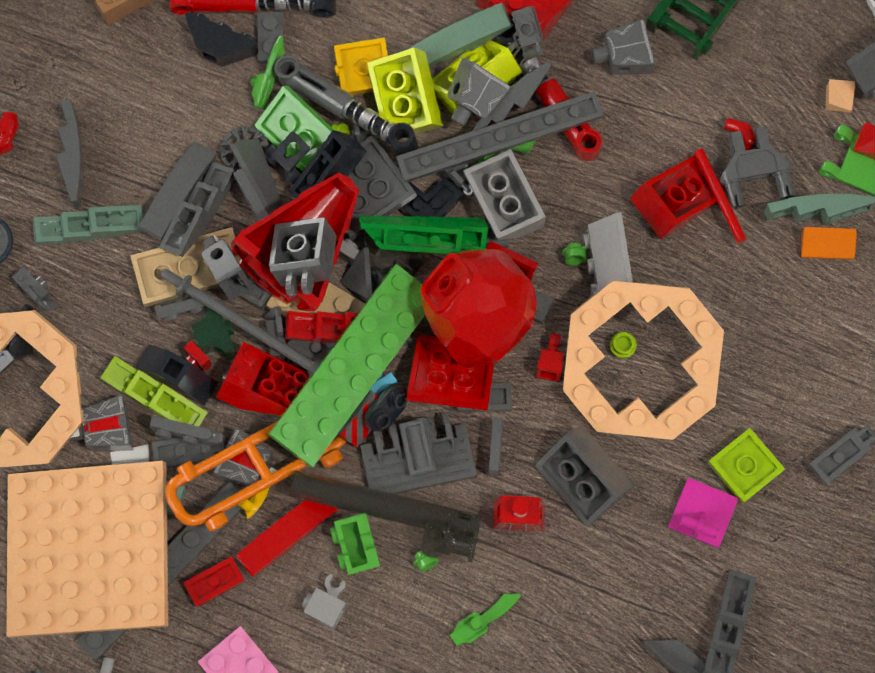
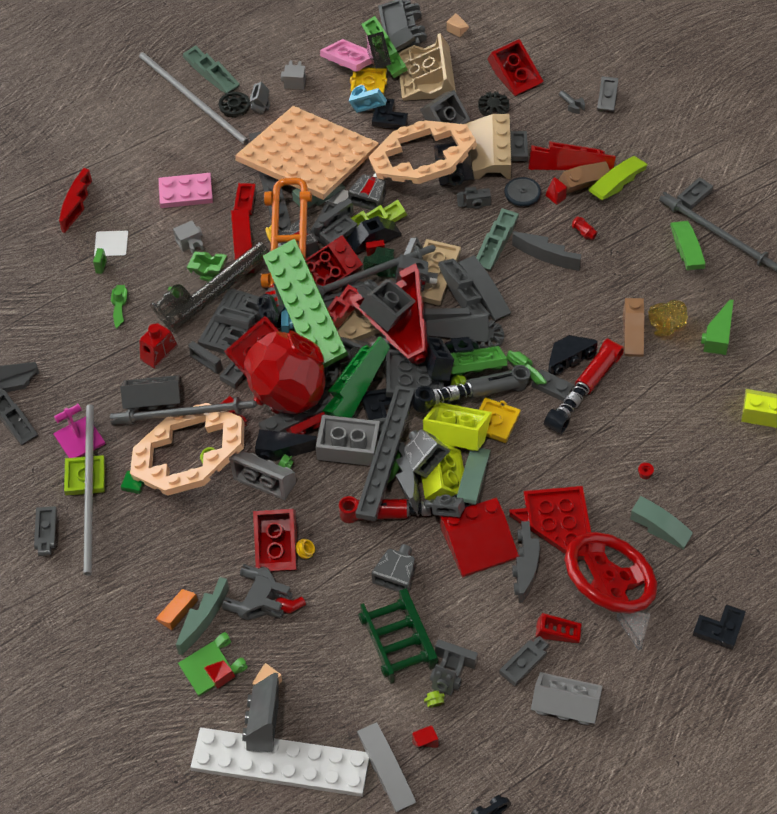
camera: 125 degrees right, 20 degrees down
(203, 413) = (343, 226): none -> dark grey plate
(558, 273) = (275, 444): none -> black slope
(637, 469) = (130, 417): none -> dark grey bar
(666, 158) = (305, 548): none -> yellow plate
(720, 196) = (256, 561): red bar -> none
(720, 410) = (131, 485): none -> green tile
(762, 441) = (88, 507): none -> light grey piece

